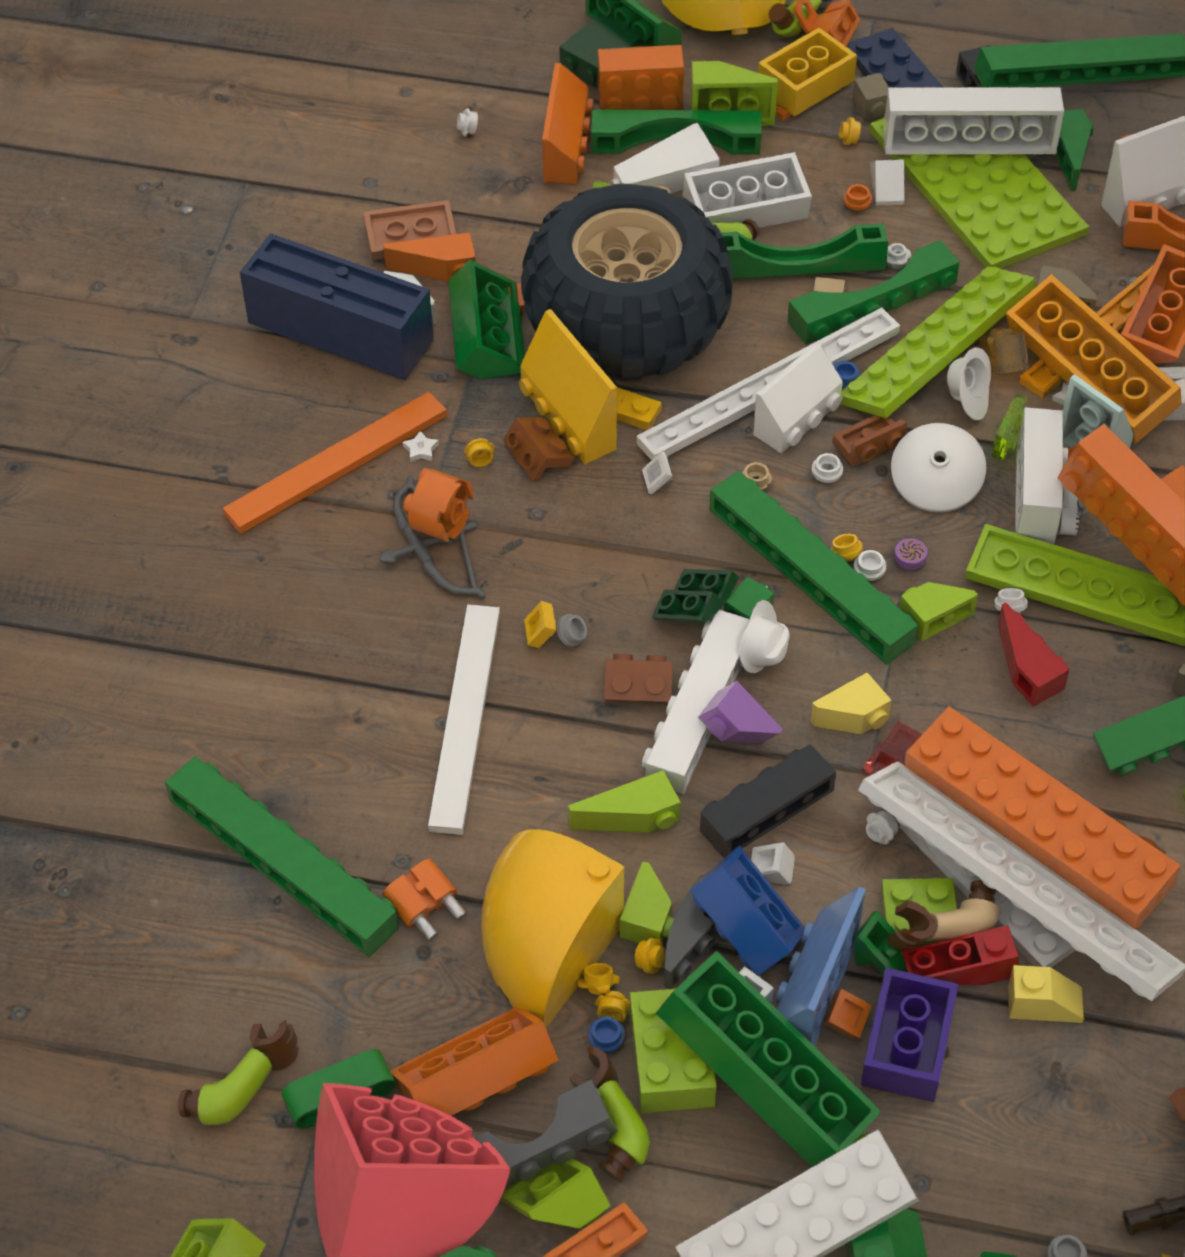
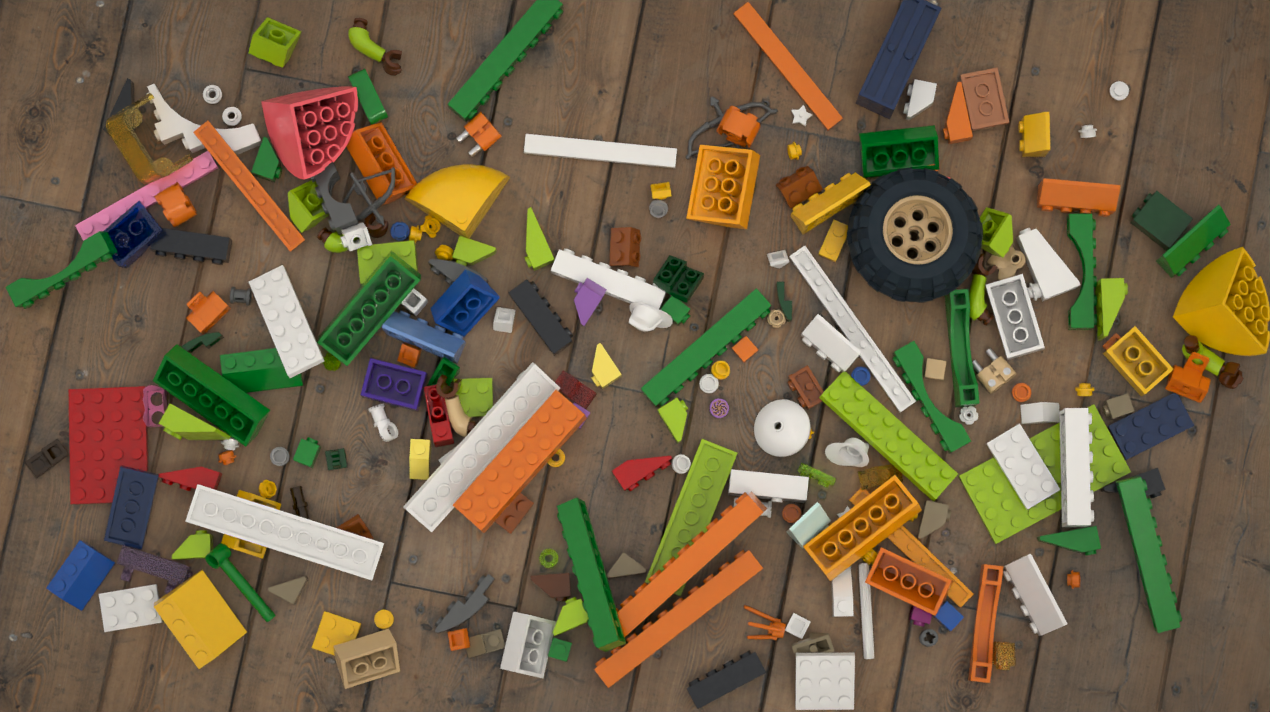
camera: 90 degrees right, 30 degrees up
(409, 94) = (1119, 90): none -> white plate
(470, 165) = (1035, 135): none -> yellow slope
(527, 1087) = (361, 190): none -> dark grey piece
(536, 536) = (723, 186): none -> light orange slope
(624, 1086) = (350, 233): none -> white brick
(641, 78) = (1122, 246): orange brick -> none
(718, 467) = (785, 306): none -> dark green slope
(812, 517) = (744, 349): none -> orange tile
(827, 468) = (784, 355): white plate -> none
(828, 219) = (995, 374): none -> tan piece
(971, 189) = (1023, 466): none -> white plate
(980, 1062) = (381, 421): none -> white connector
(1055, 1197) = (307, 452): none -> green brick
(1061, 1149) = (336, 459): none -> dark green tile

